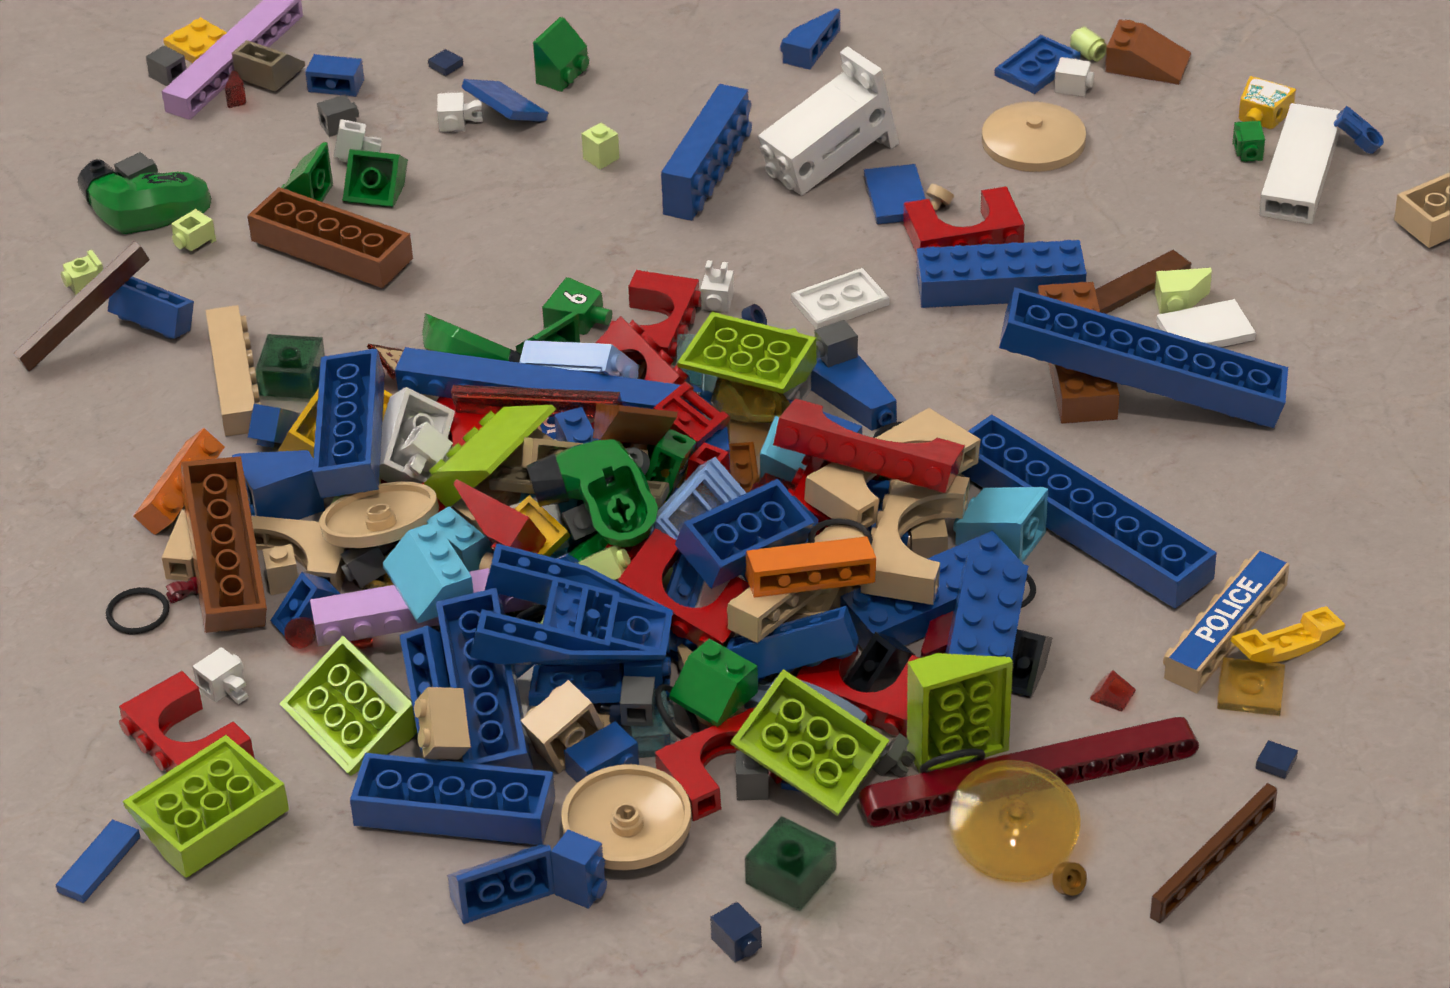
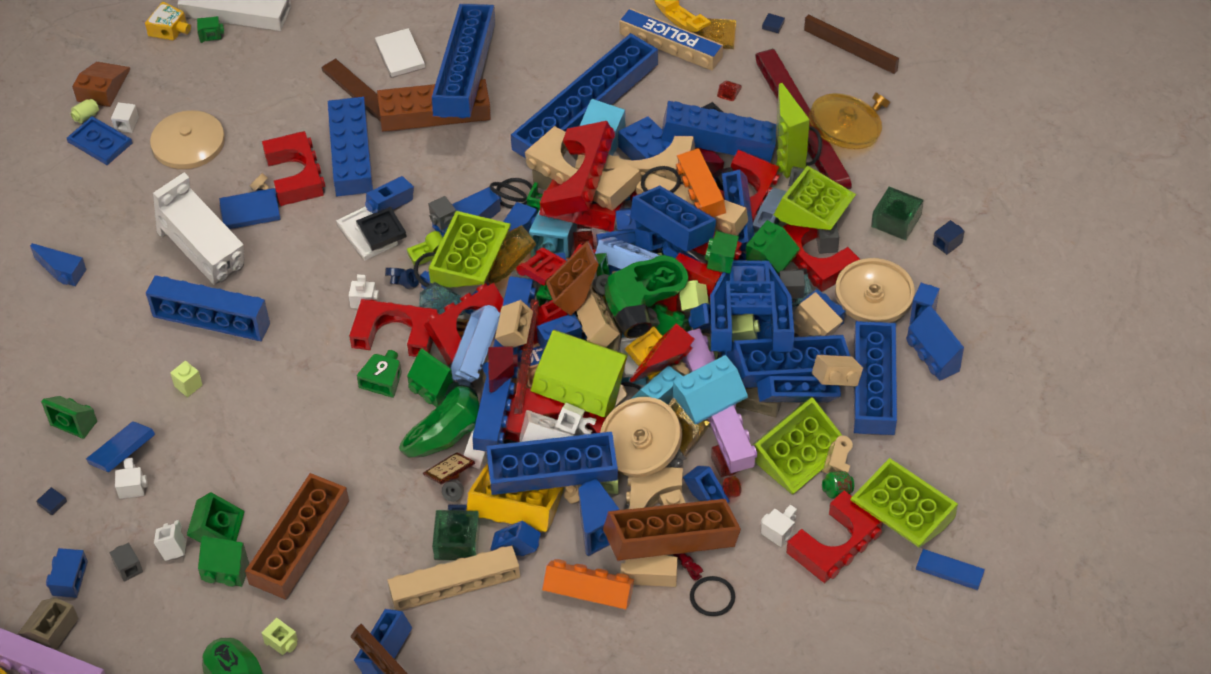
camera: 95 degrees left, 10 degrees up
(235, 91) = (79, 644): clear red slope -> none
(272, 743) = (836, 483): none -> green head
(317, 743) = (837, 455): none -> tan leg
(506, 362) = (500, 366): none -> dark red slope
(572, 371) = (514, 324): none -> tan brick
(674, 590) = (721, 252): none -> green brick
(830, 300) = (381, 228): none -> black plate
(879, 395) = (511, 198): none -> black tyre
(893, 309) = (390, 195): none -> blue brick
(1181, 288) = (368, 61): yellowish green slope -> none

